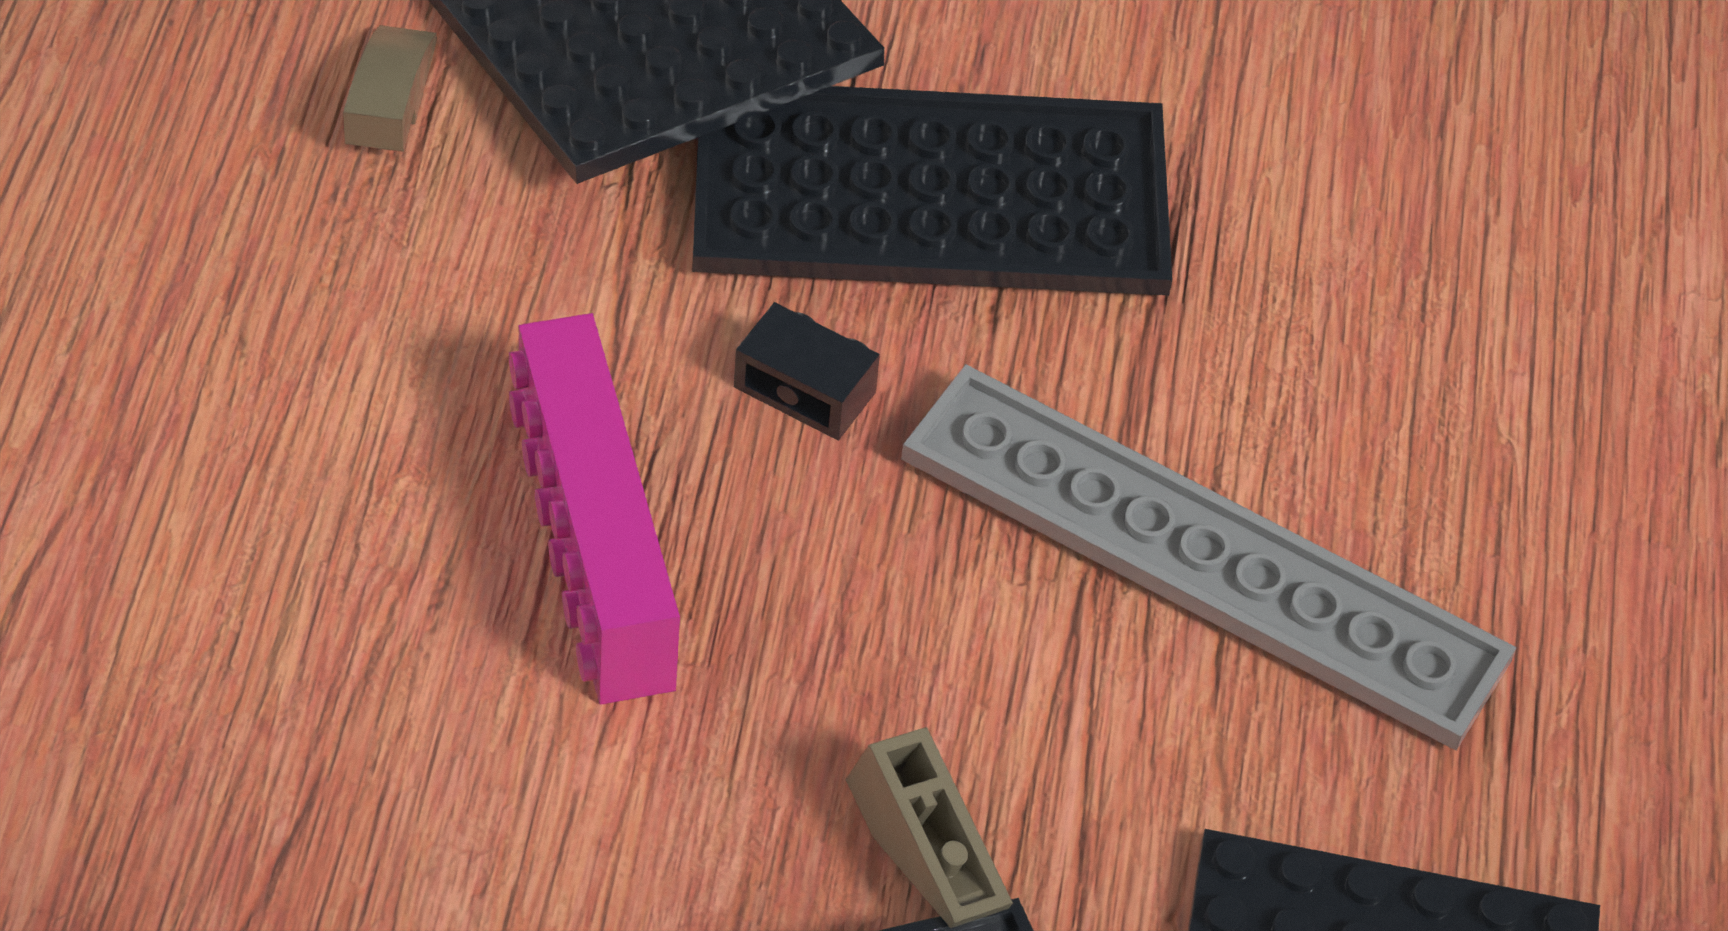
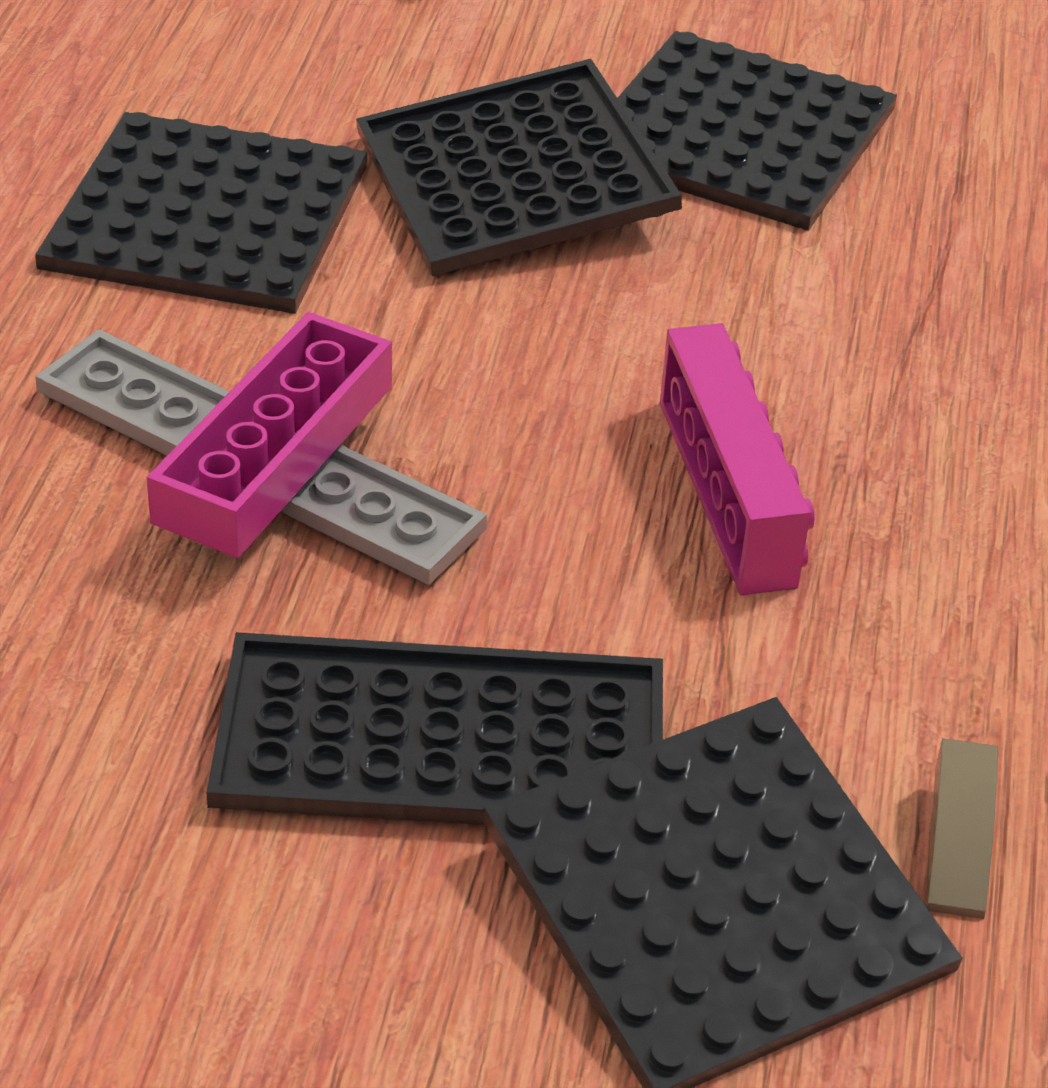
camera: 175 degrees left, 10 degrees down
(806, 370) = (563, 575): black brick -> none
(926, 827) = (492, 286): dark tan slope -> none
(1179, 492) = (270, 434): none -> dark pink brick

